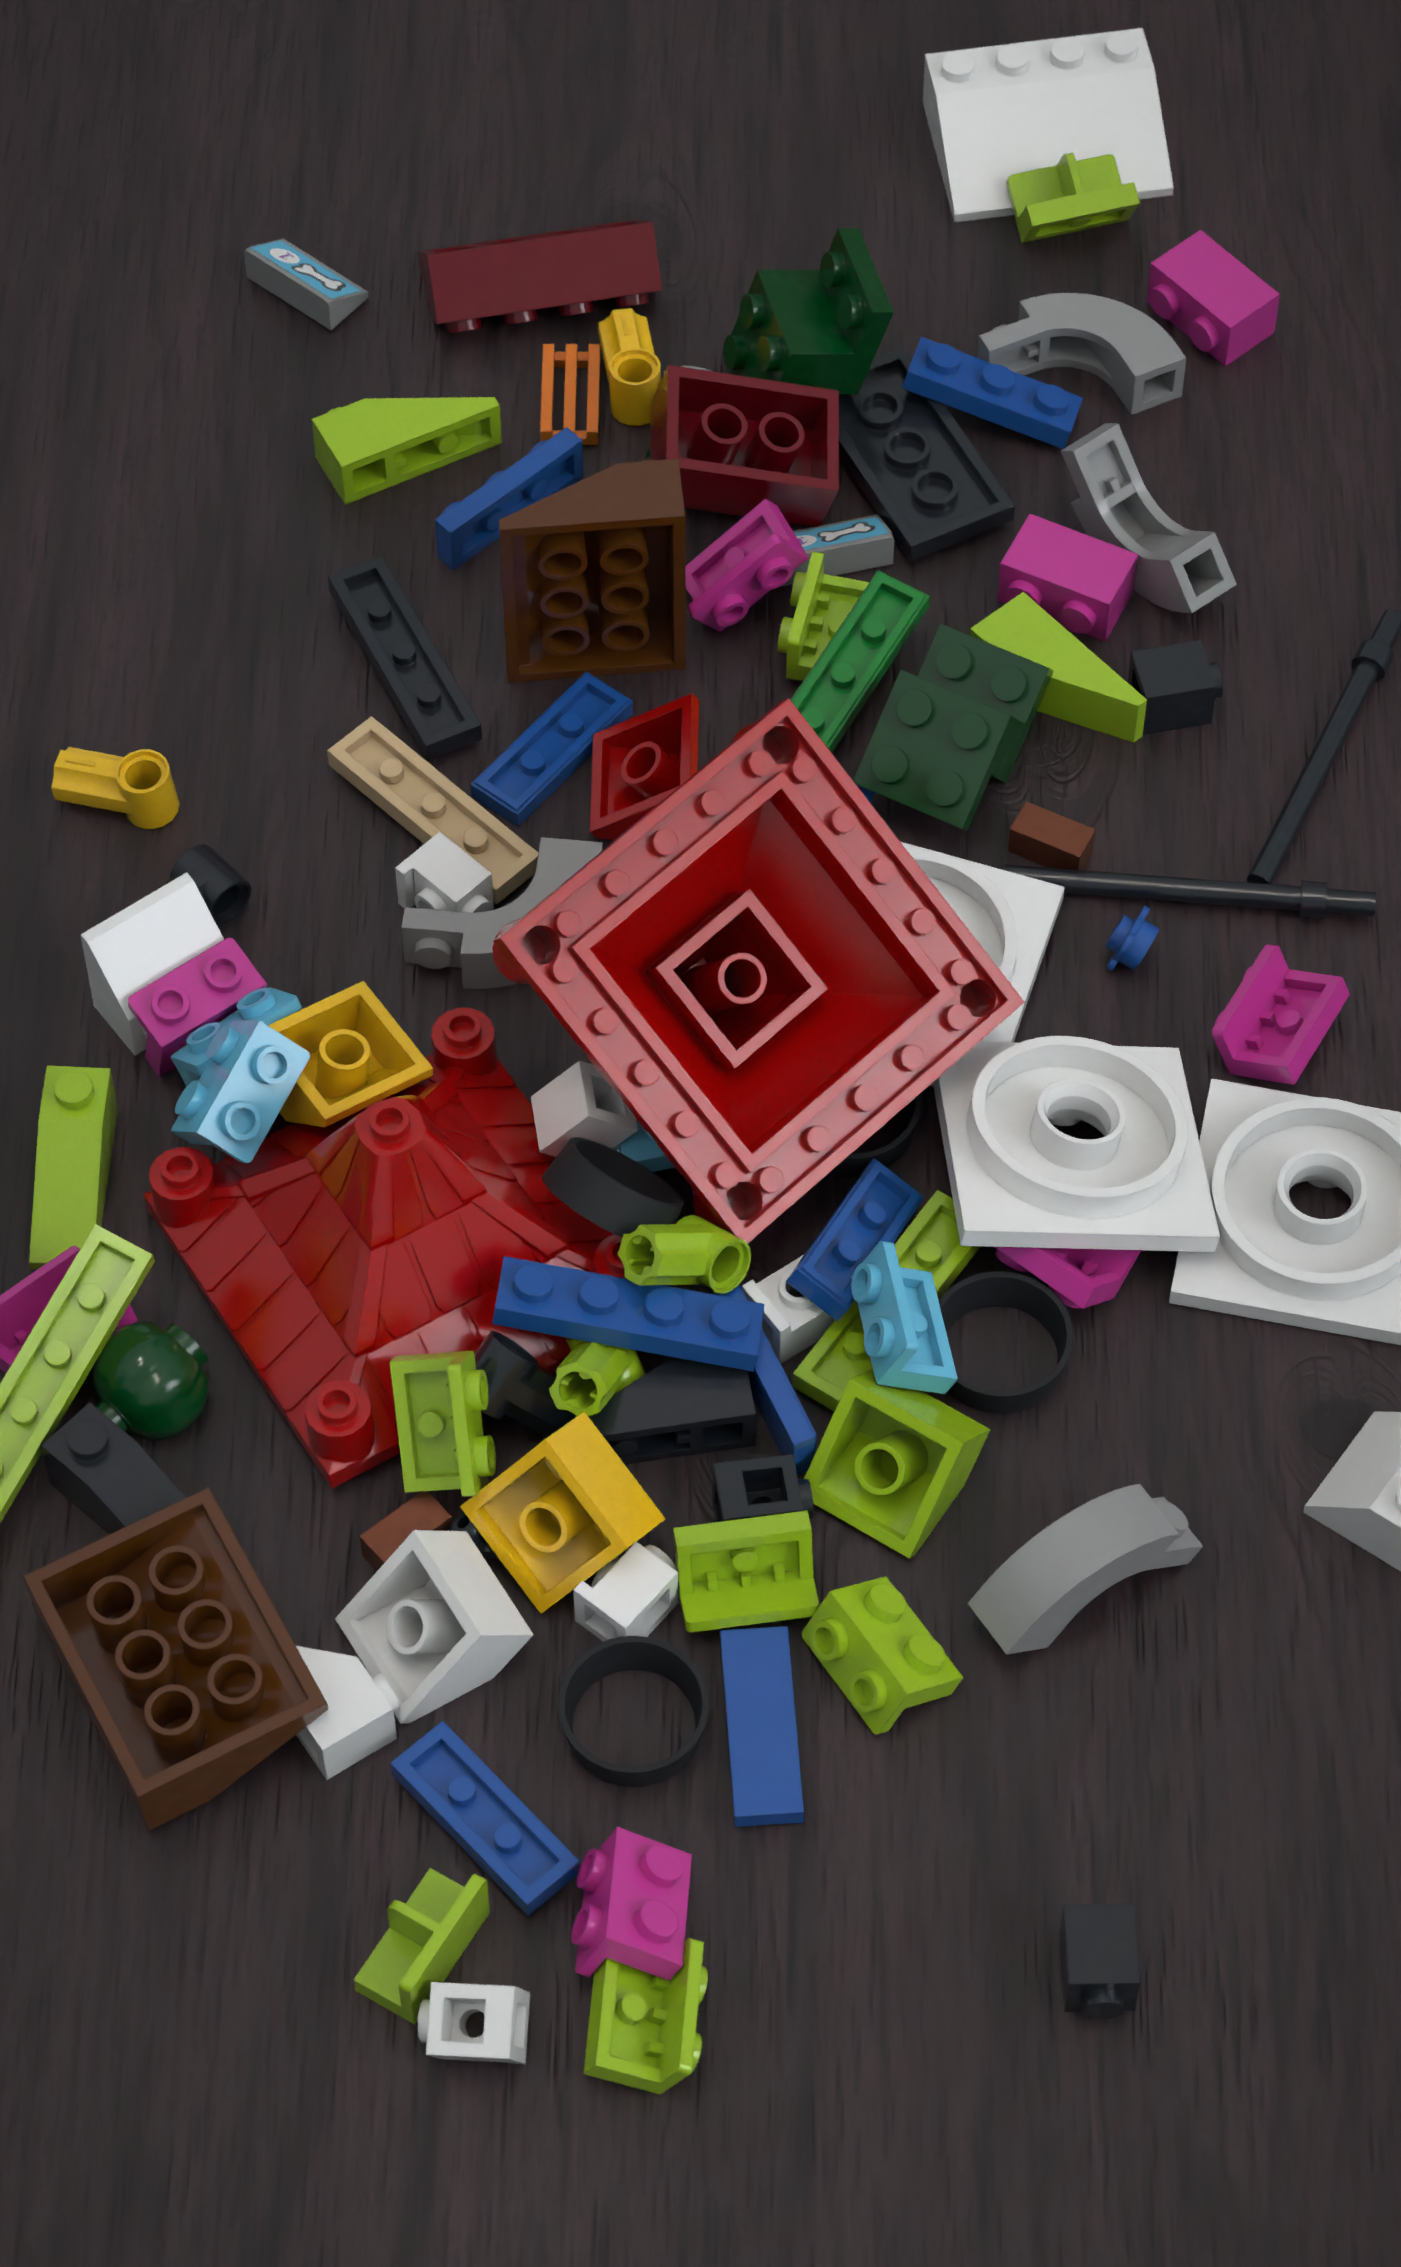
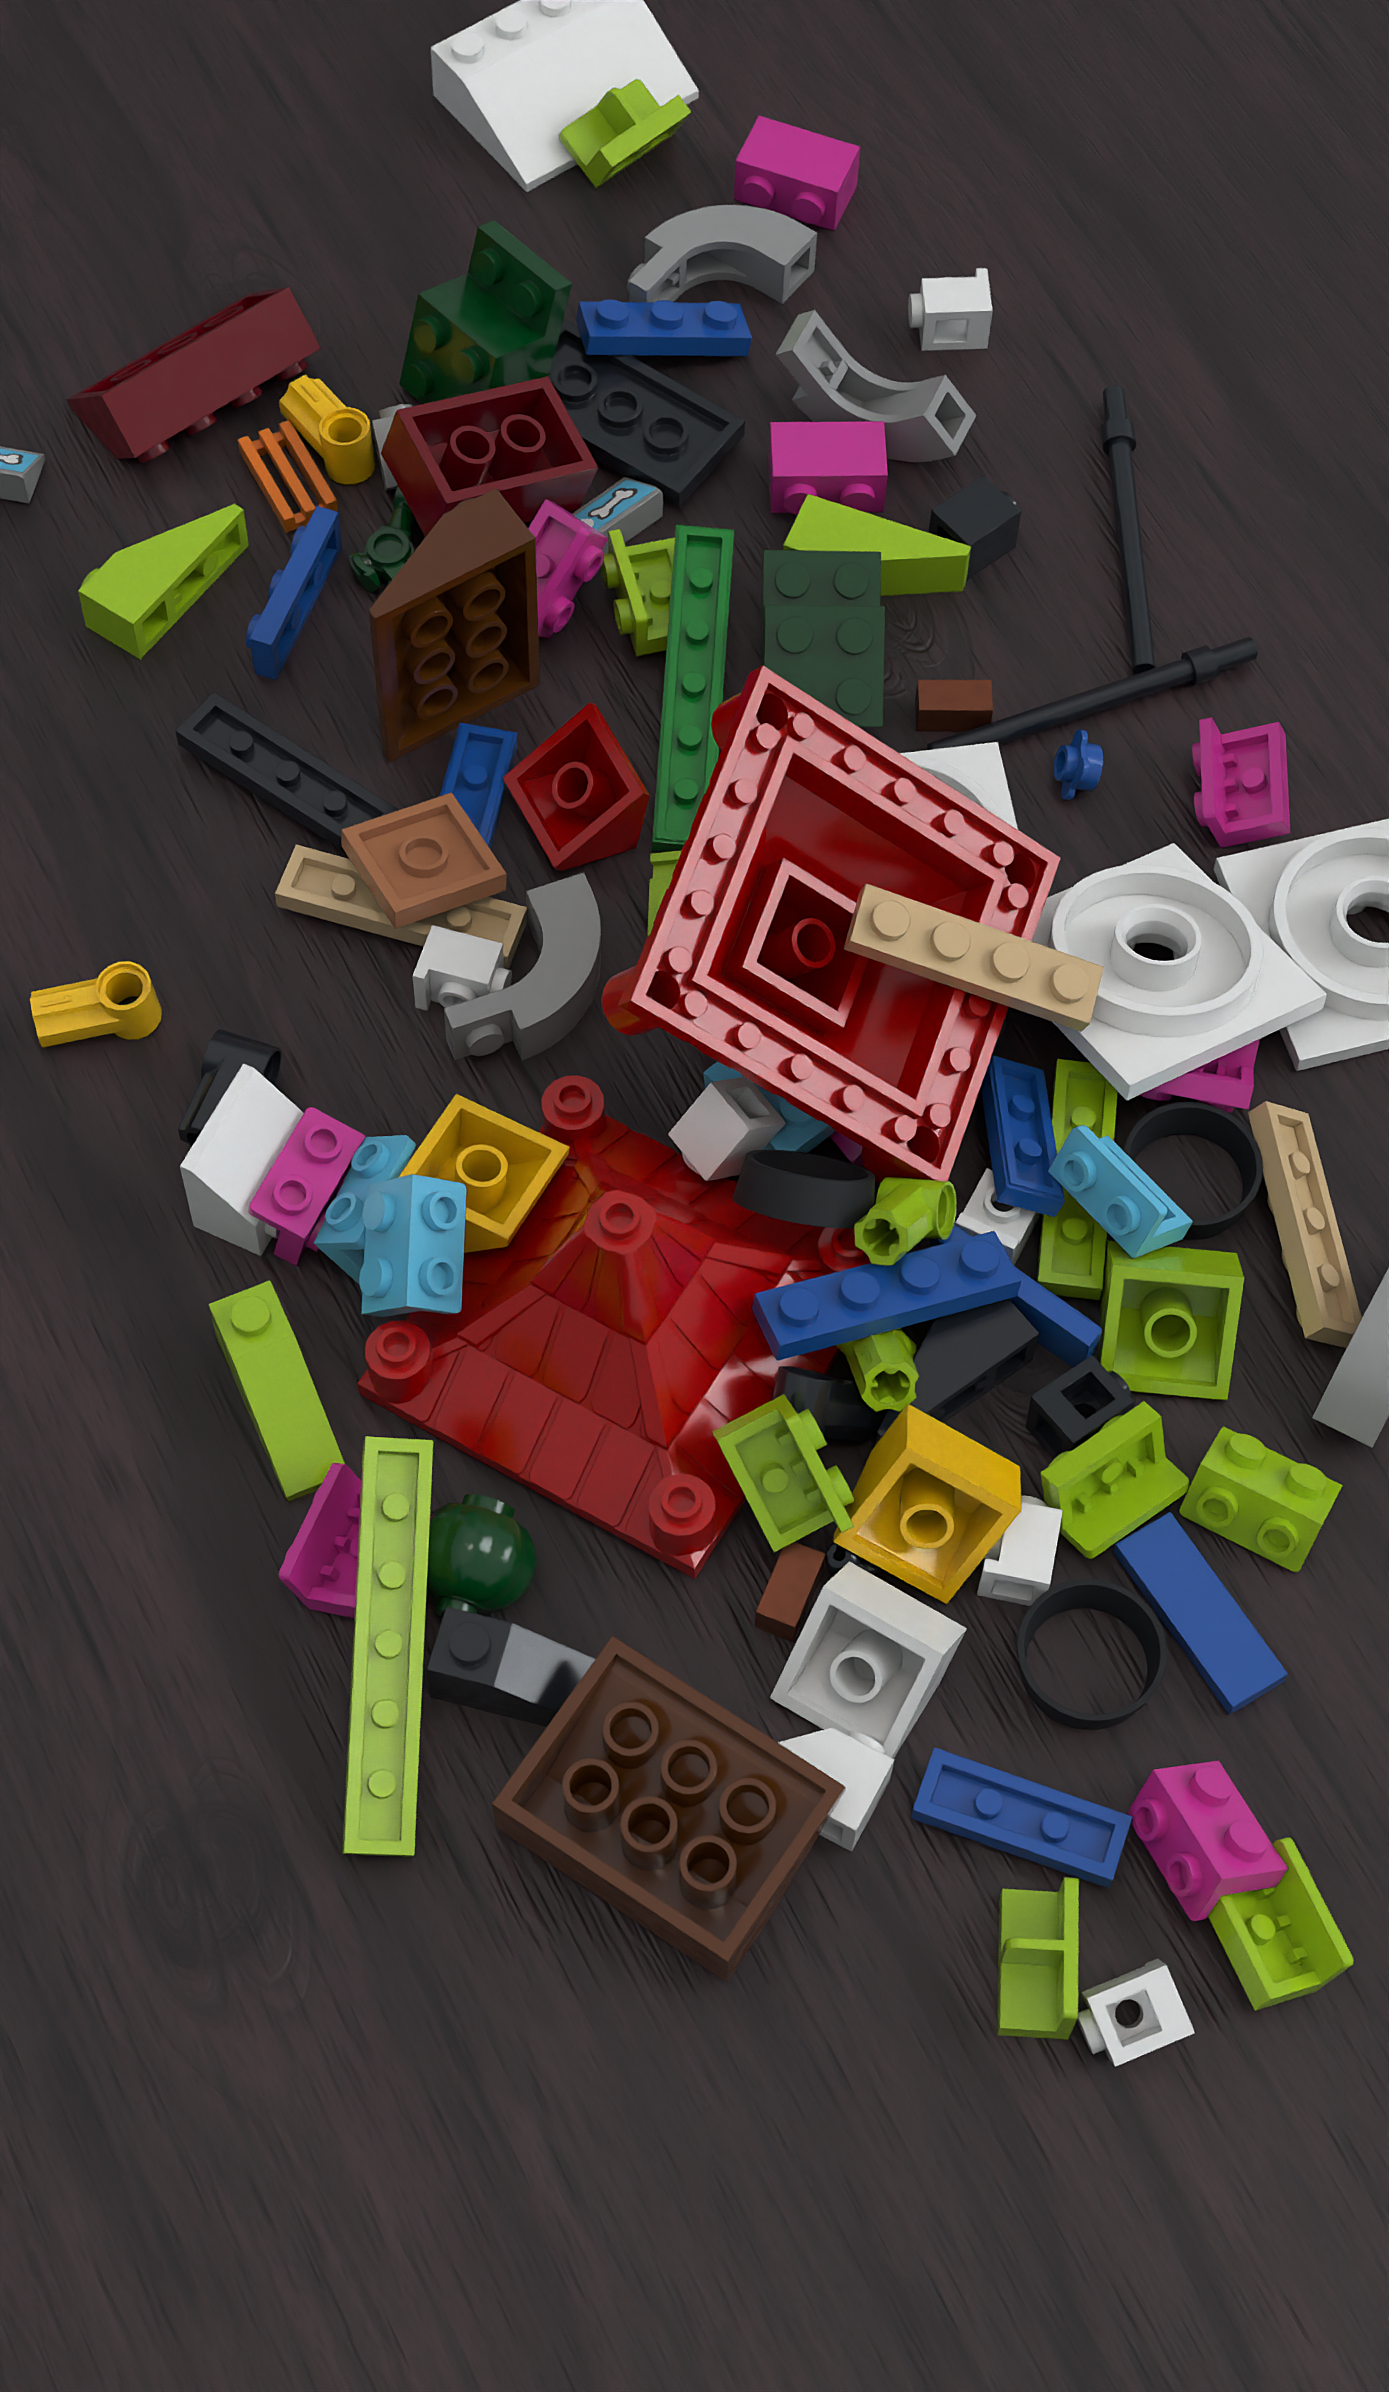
camera: 30 degrees left, 5 degrees up
(467, 773) = (423, 860): none -> nougat plate
(876, 1051) = (973, 957): none -> tan plate
(1080, 1423) = (1306, 1224): none -> tan plate
(1281, 482) = (952, 312): none -> white brick

